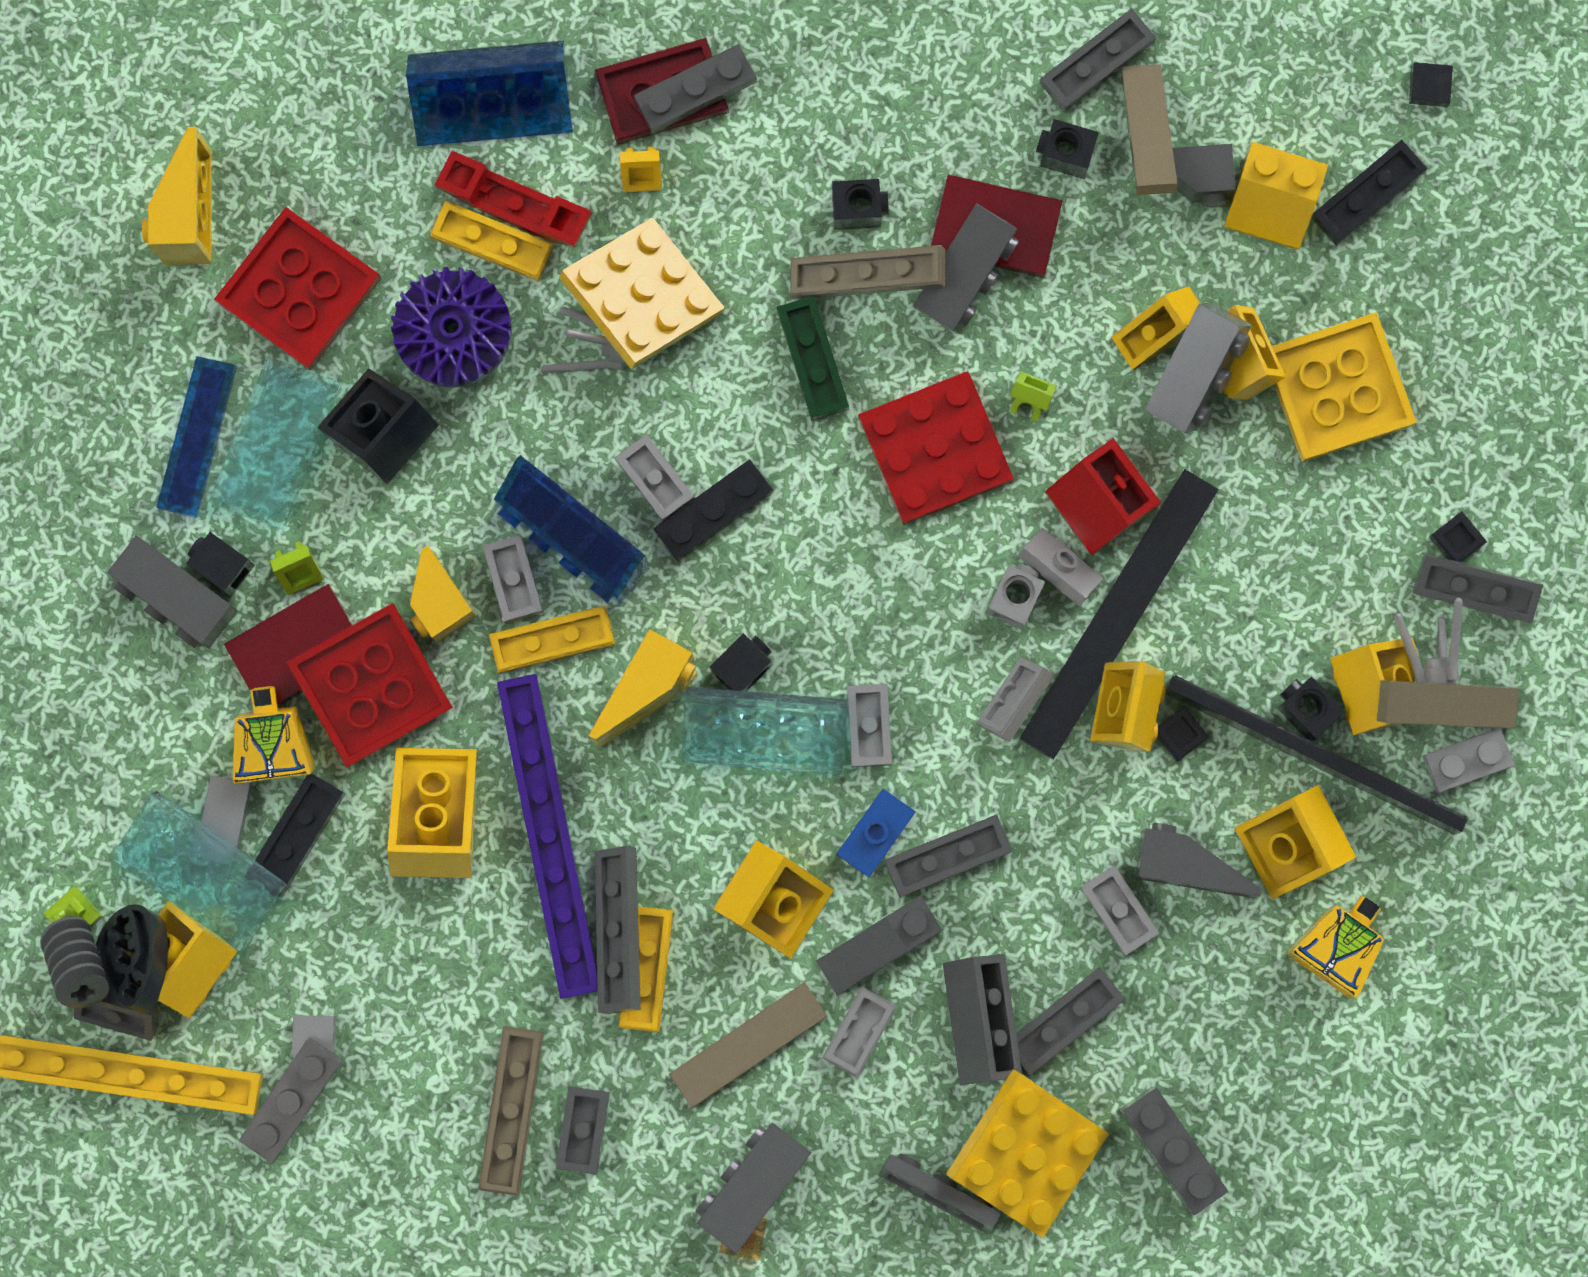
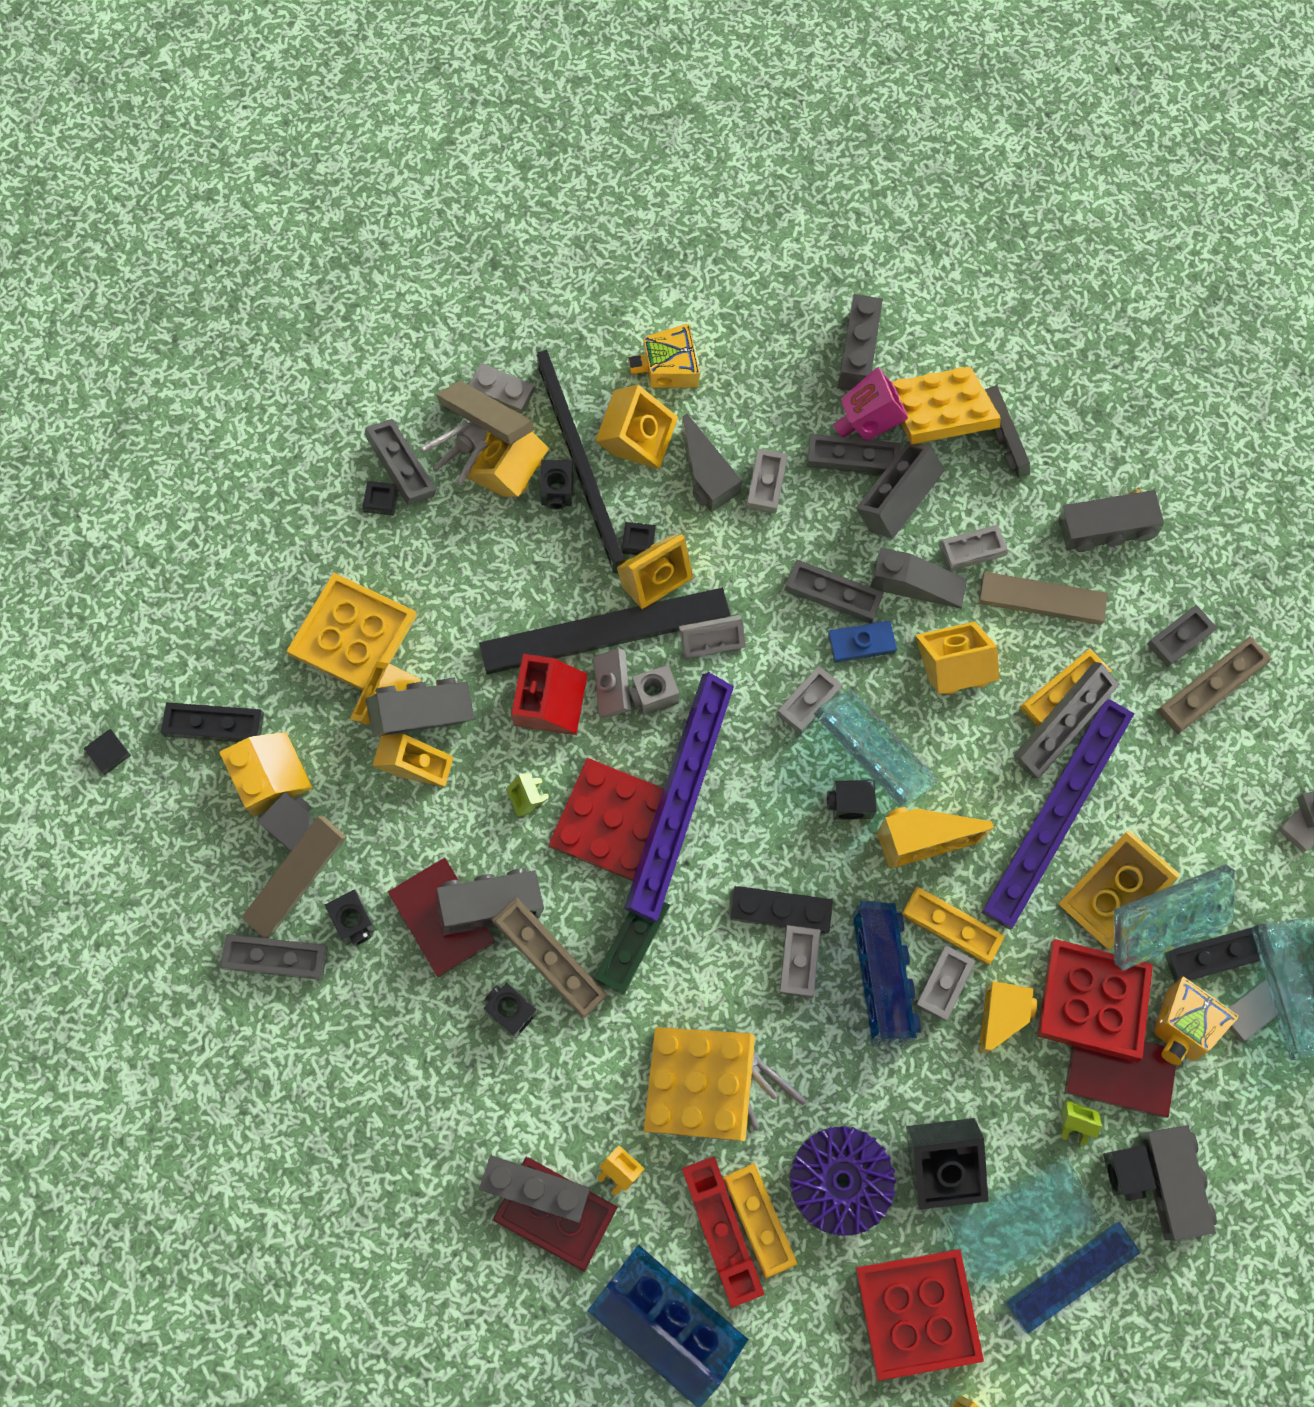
camera: 140 degrees left, 10 degrees down
(362, 819) = (1173, 916): none -> clear light blue plate
(897, 519) = (679, 798): none -> dark purple plate
(1090, 1080) = (871, 407): none -> dark pink torso

